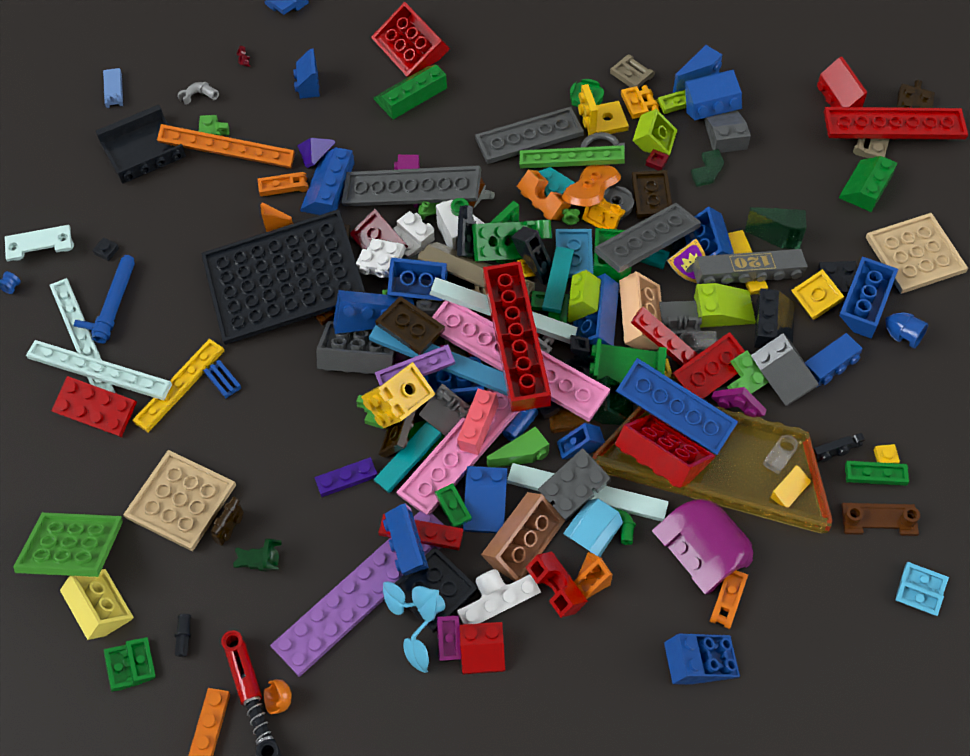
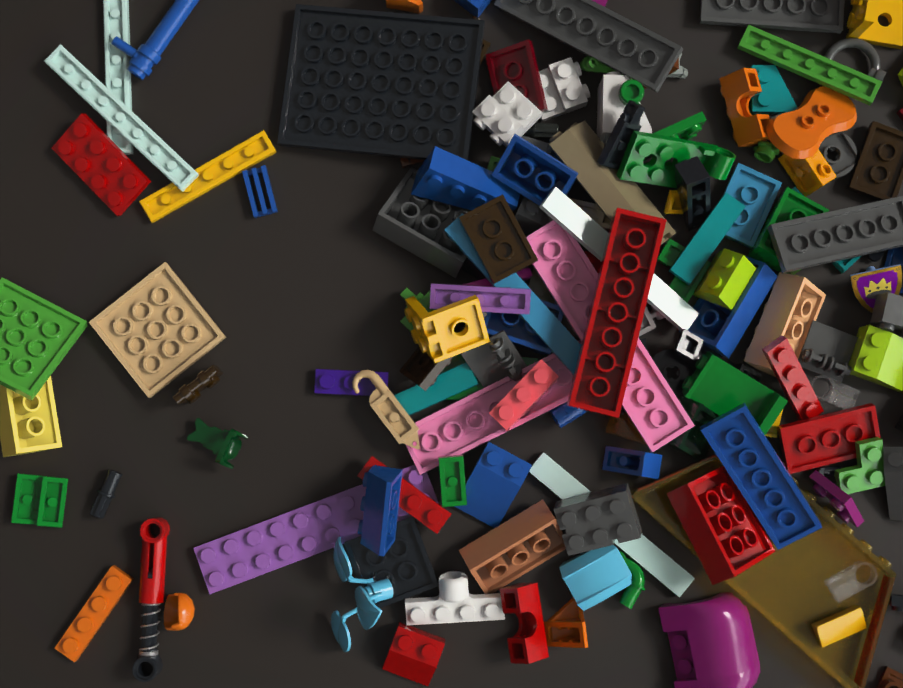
camera: 20 degrees right, 25 degrees up
(383, 478) = (389, 409): none -> tan plate
(448, 638) = (382, 633): magenta plate -> none
(522, 450) = (567, 442): bright green slope -> none

